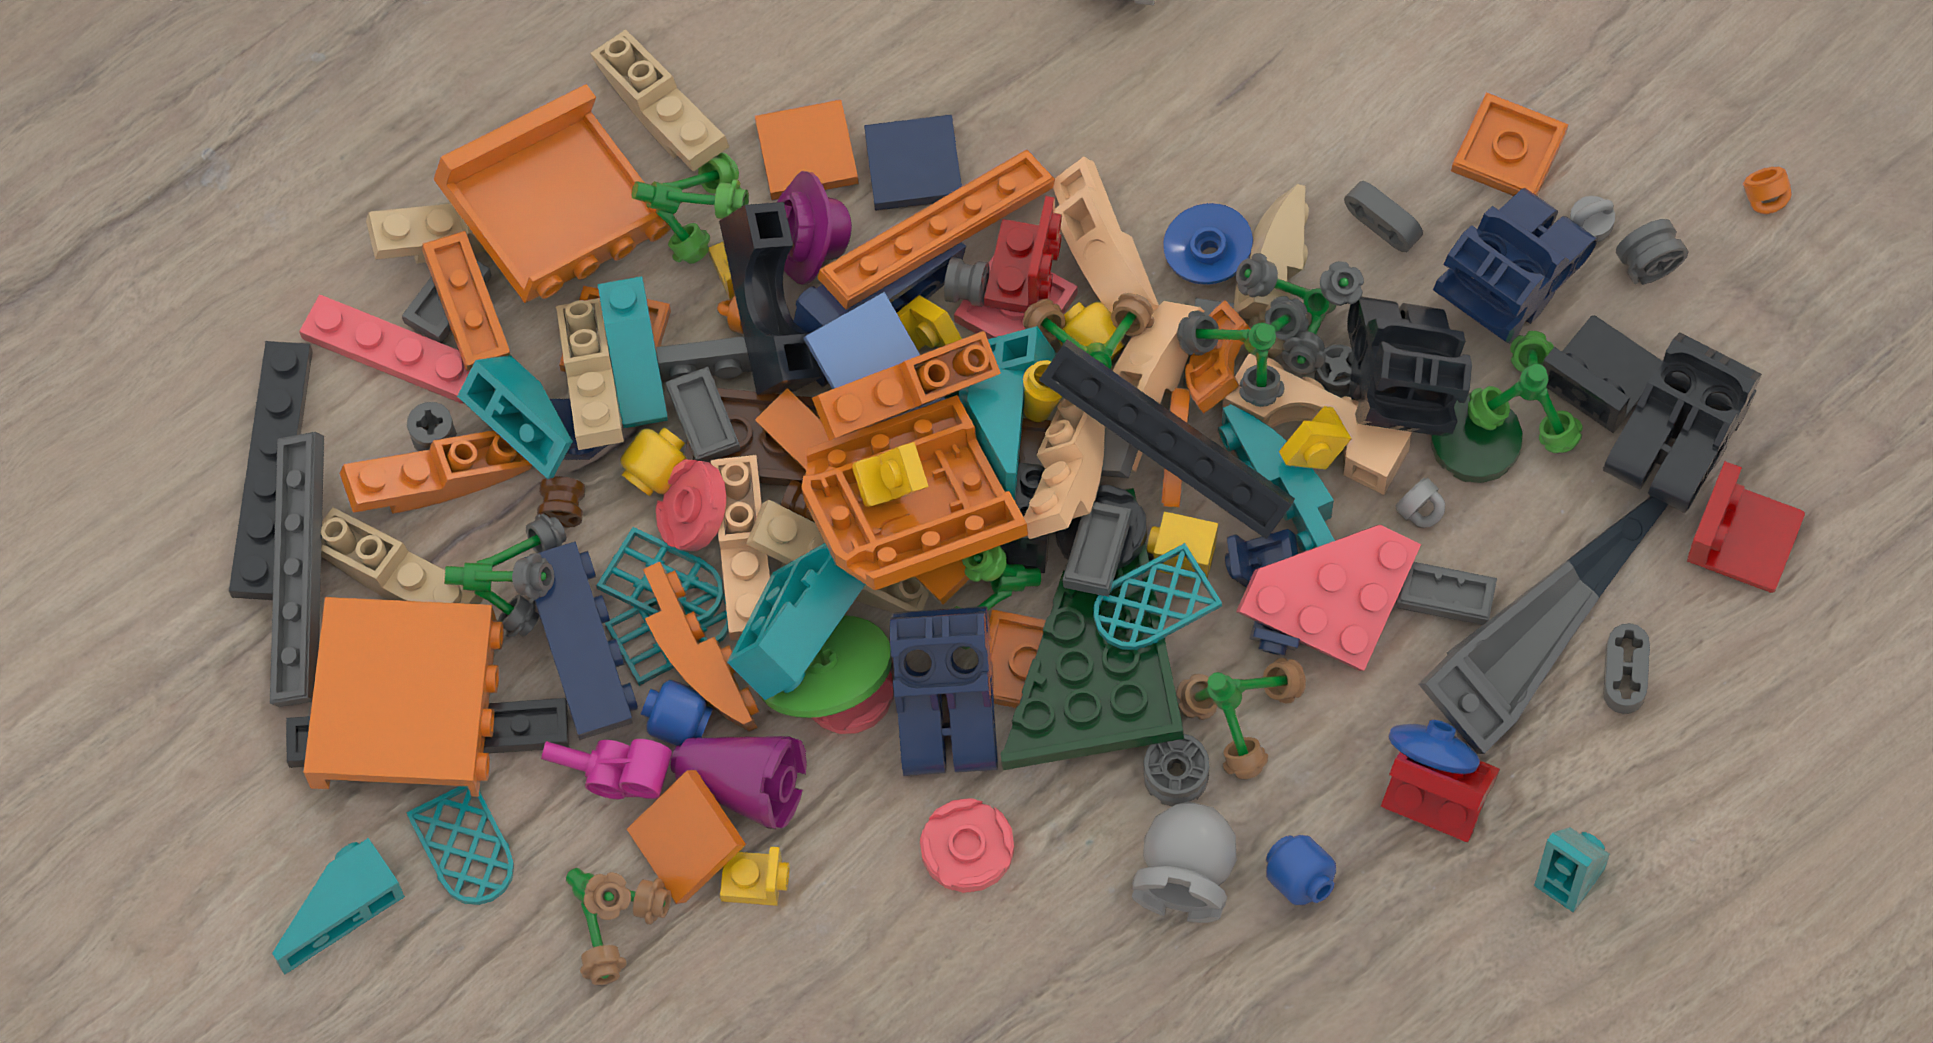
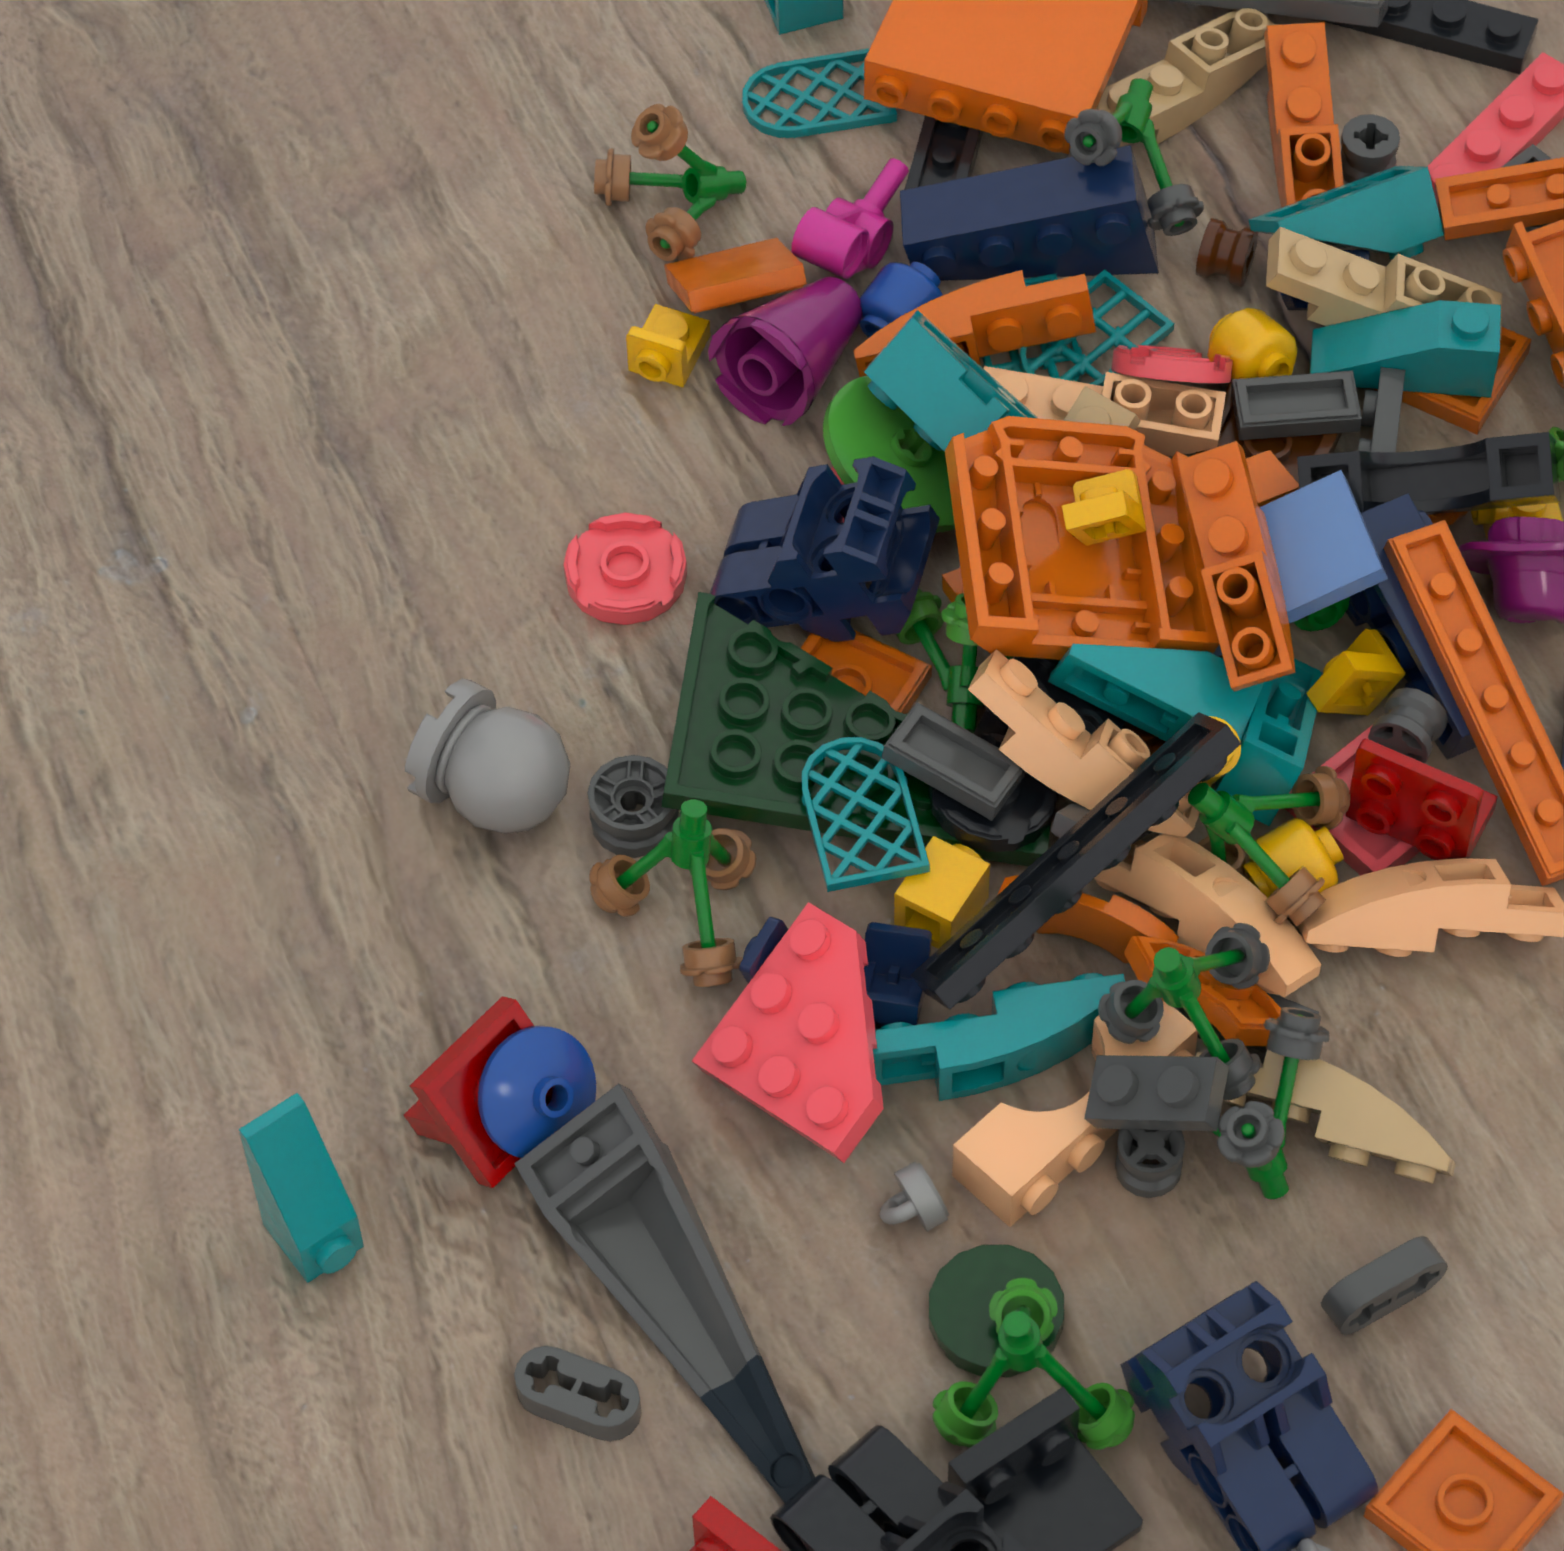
camera: 105 degrees right, 10 degrees down
(1203, 228) = (1400, 1024): blue dish -> none
(1300, 869) = (438, 901): blue head -> none
(1316, 441) = (1017, 1052): yellow bracket -> none
(1324, 350) = (1157, 1093): none -> dark grey plate
(1406, 366) = (1127, 1208): black connector -> none
(1447, 593) = (768, 1195): dark grey plate -> none

